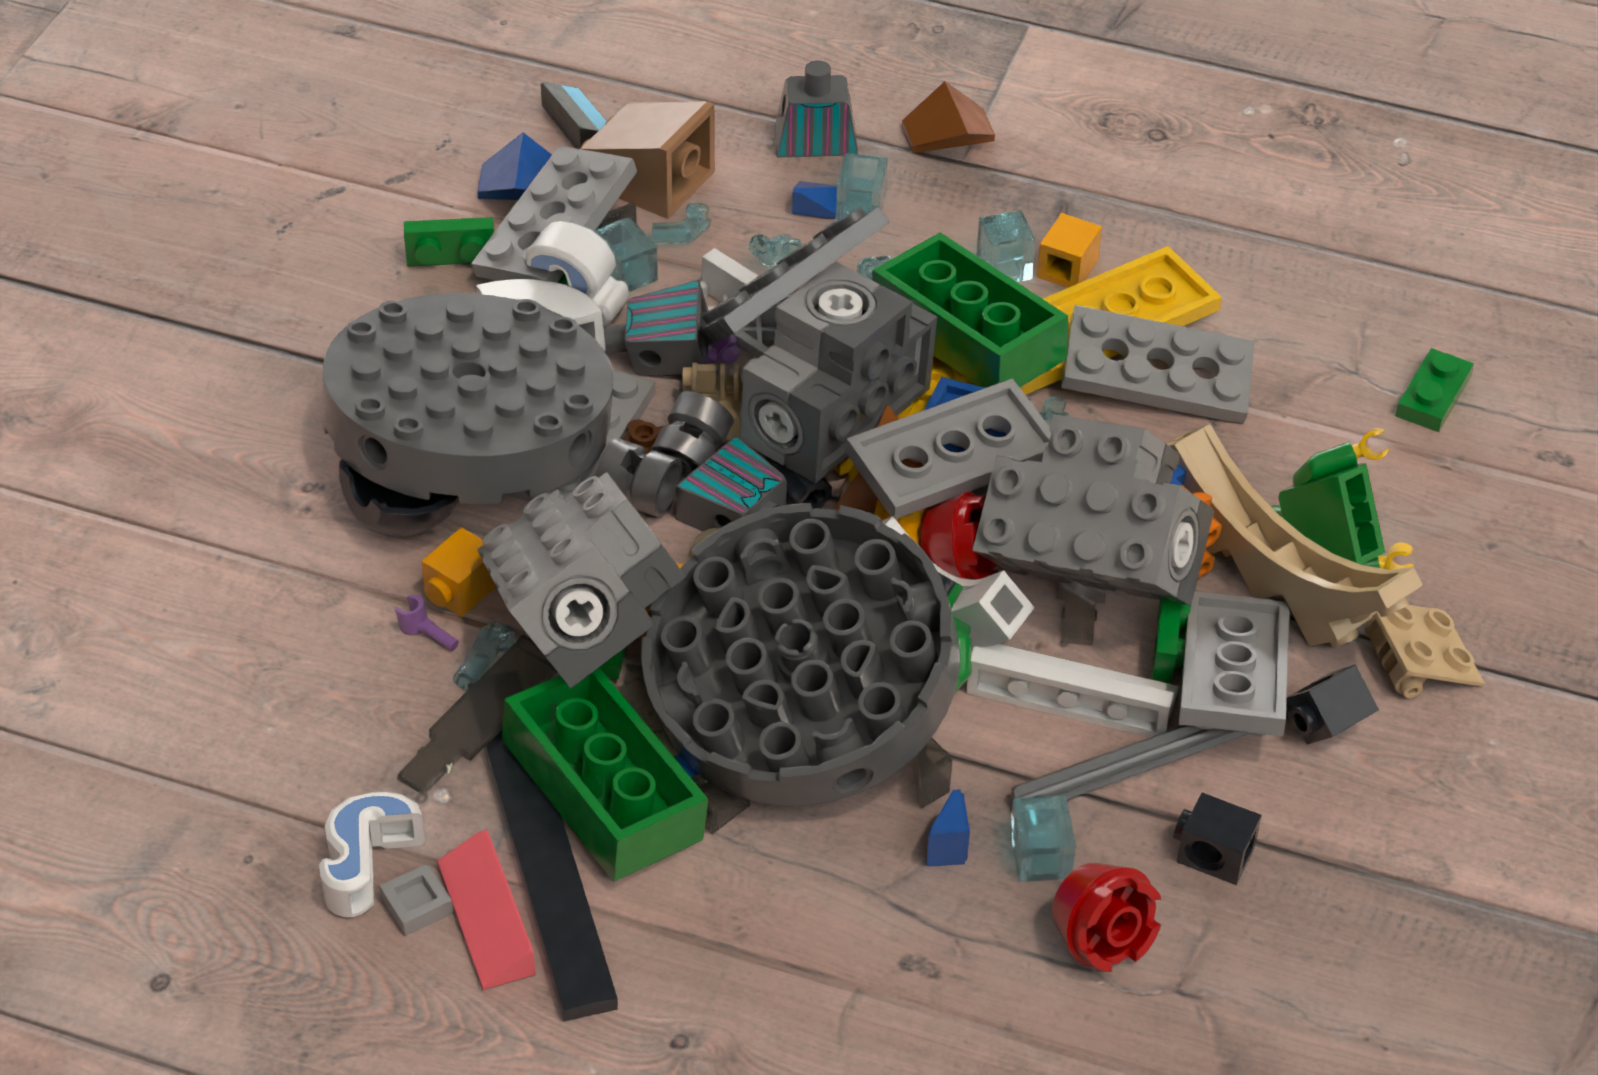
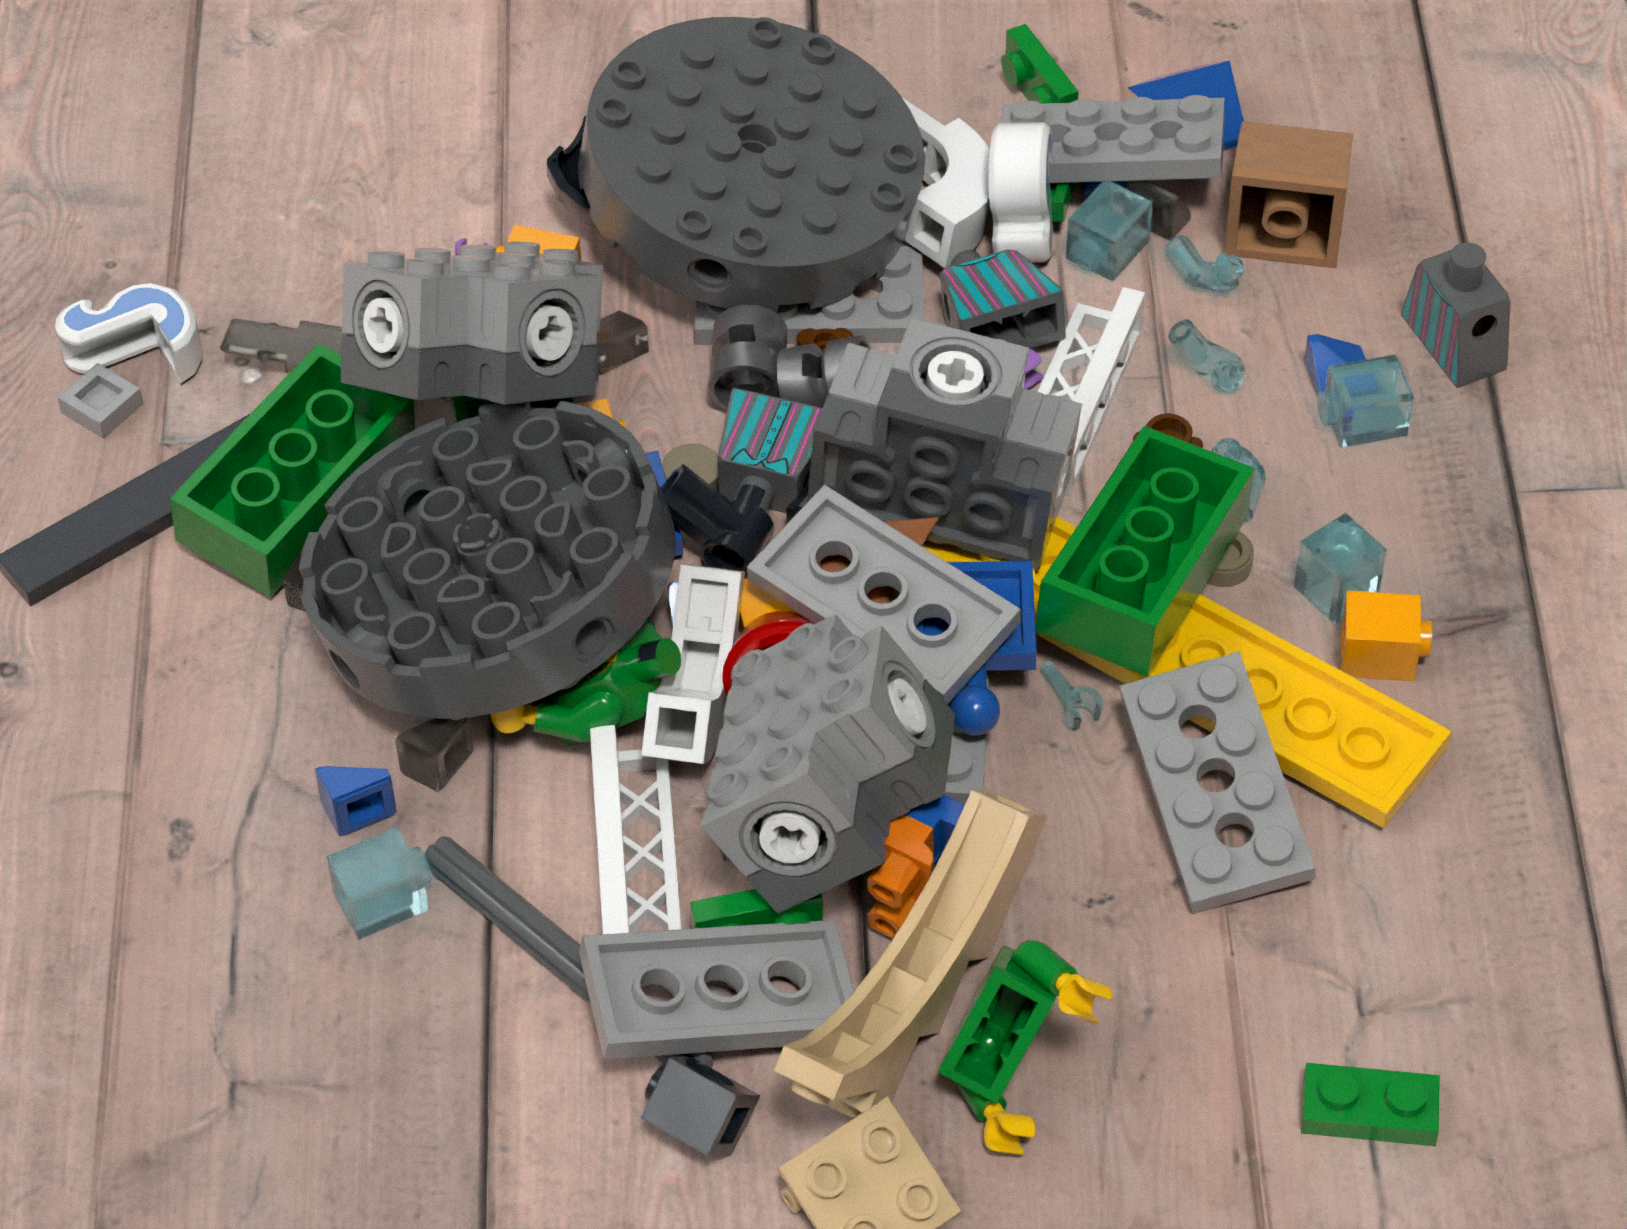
camera: 70 degrees right, 5 degrees up
(487, 912) = (104, 460): coral slope -> none
(571, 112) = (1344, 101): pearl dark grey slope -> none
(790, 273) = (1050, 338): plate -> none
(946, 121) = (1565, 451): dark orange slope -> none
(1106, 914) = (268, 961): red cone -> none
(1217, 837) = (447, 1050): black brick -> none

